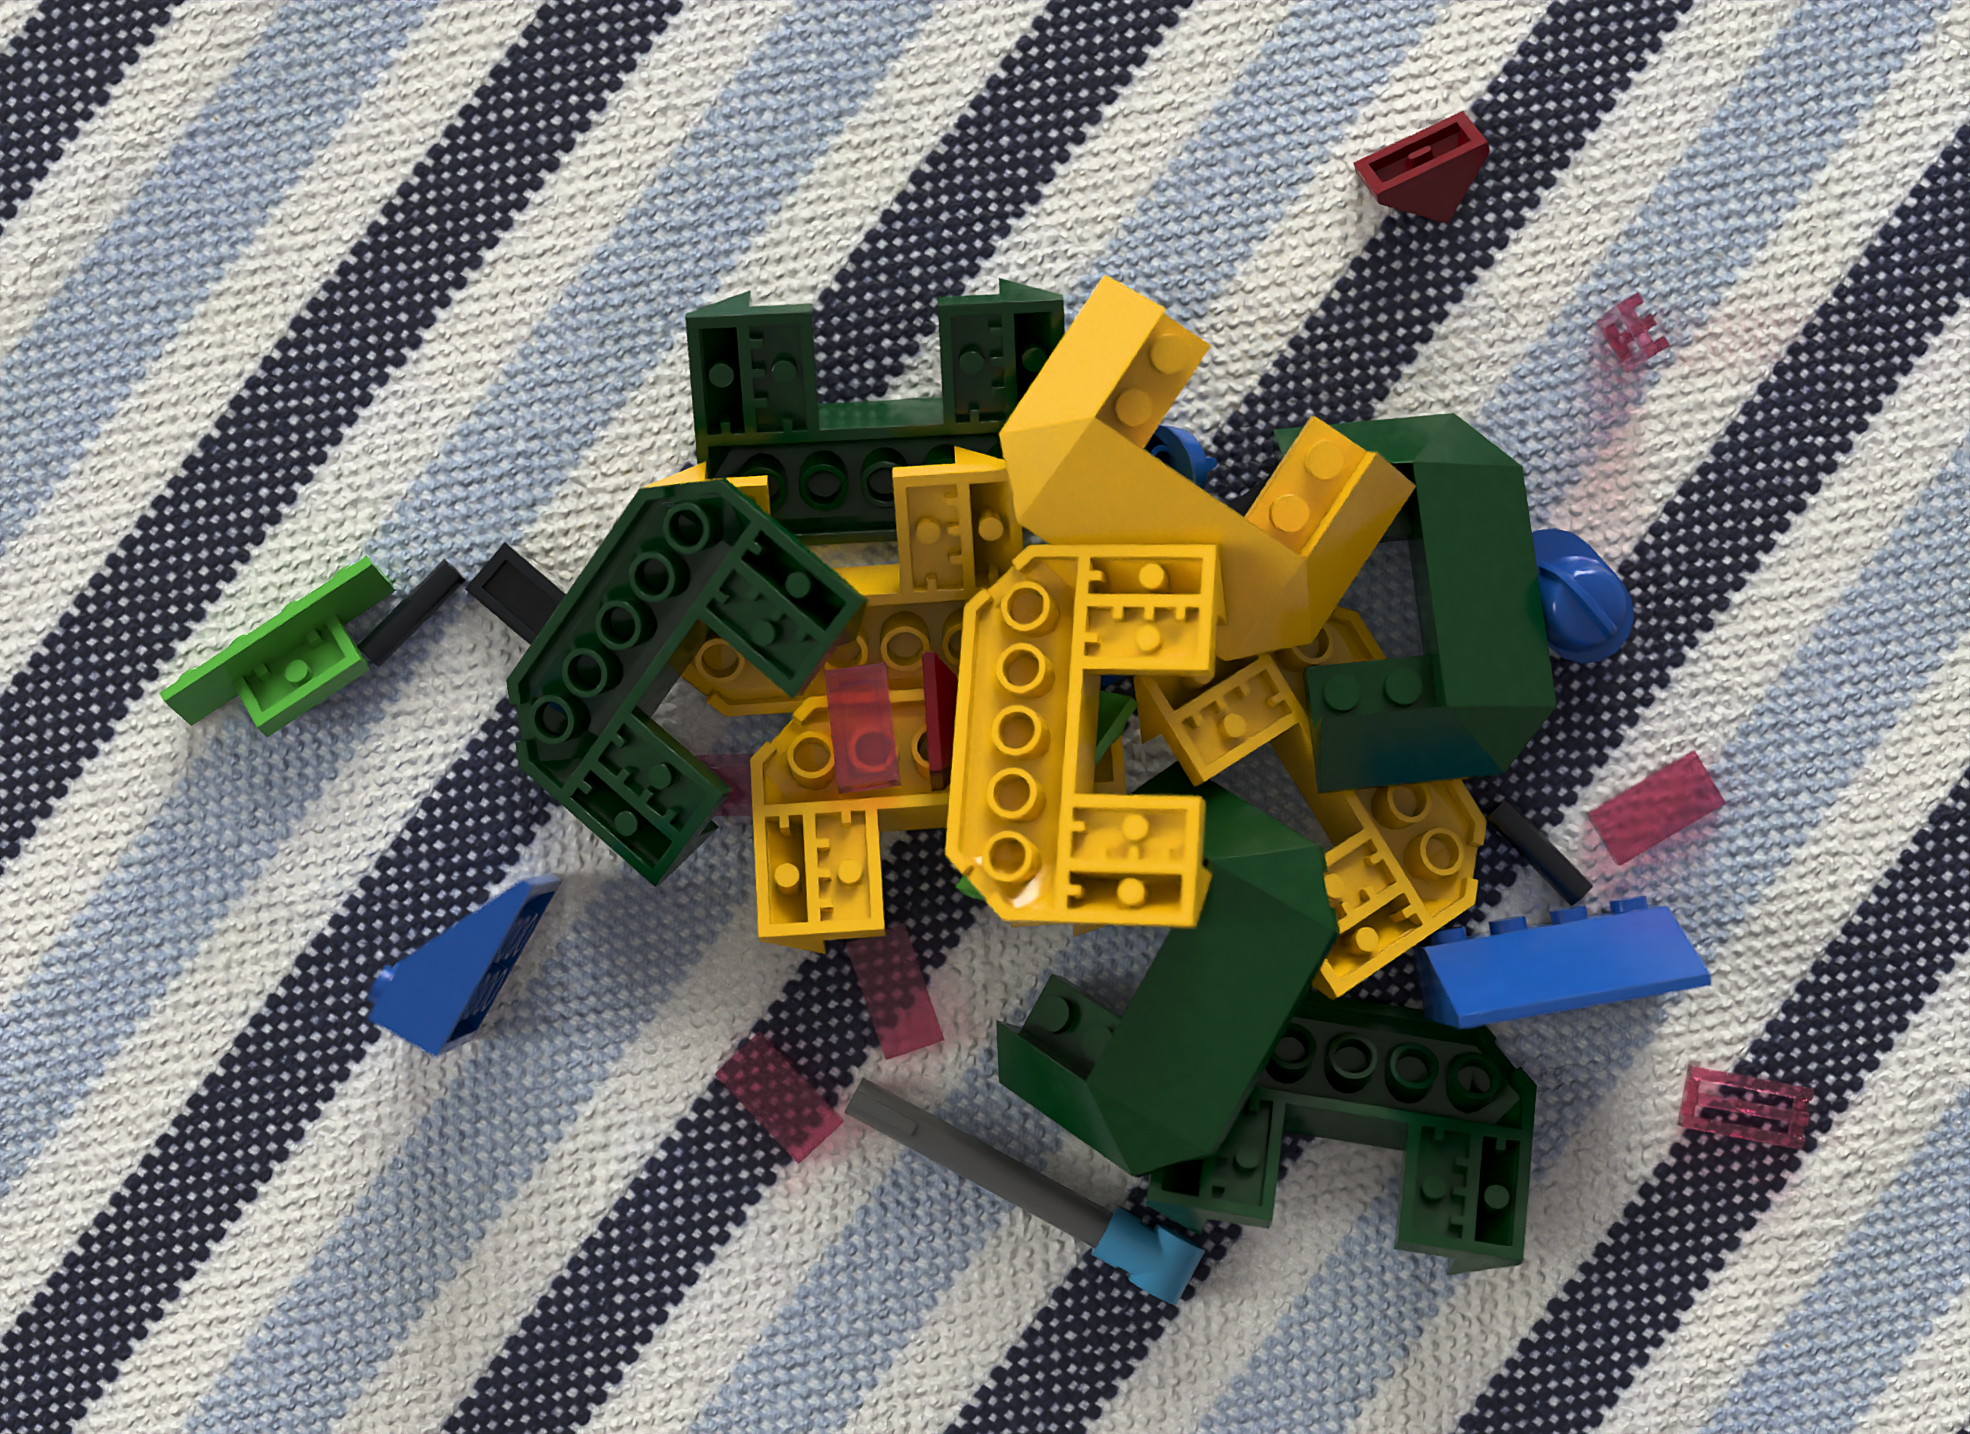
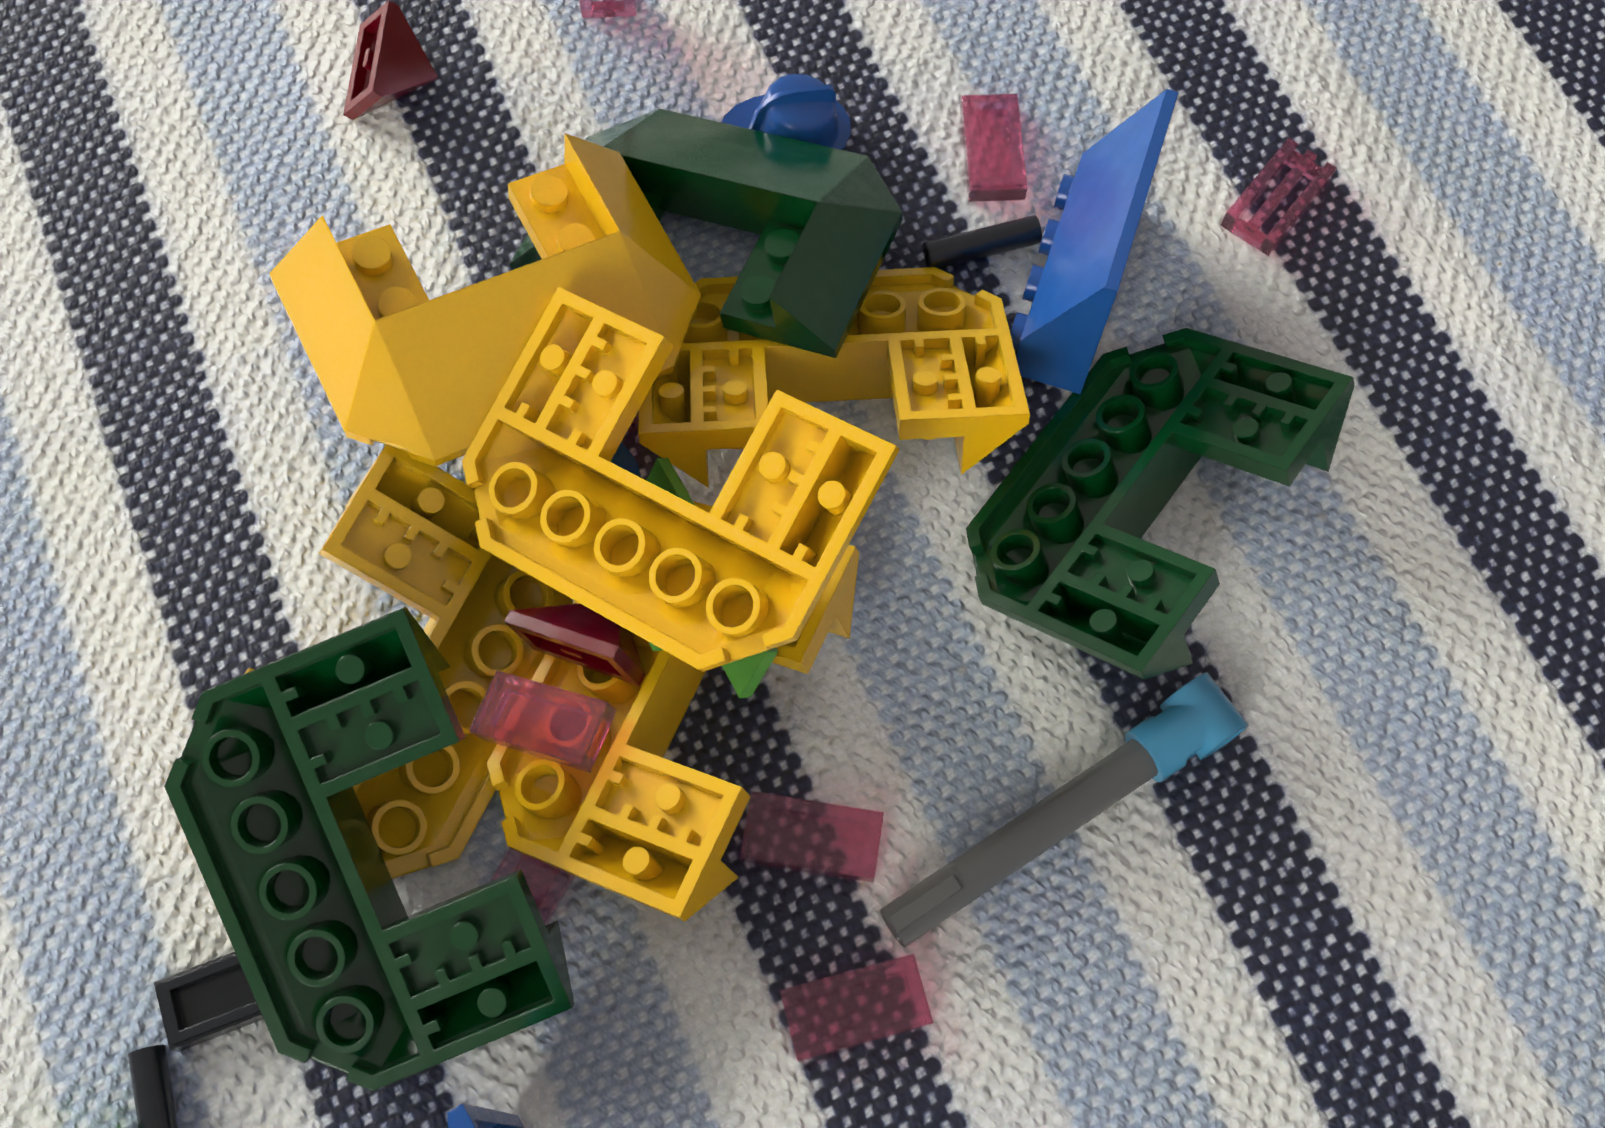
camera: 60 degrees left, 20 degrees down
(836, 460) = (167, 639): dark green slope -> none
(1206, 1014) = (1005, 545): dark green slope -> none

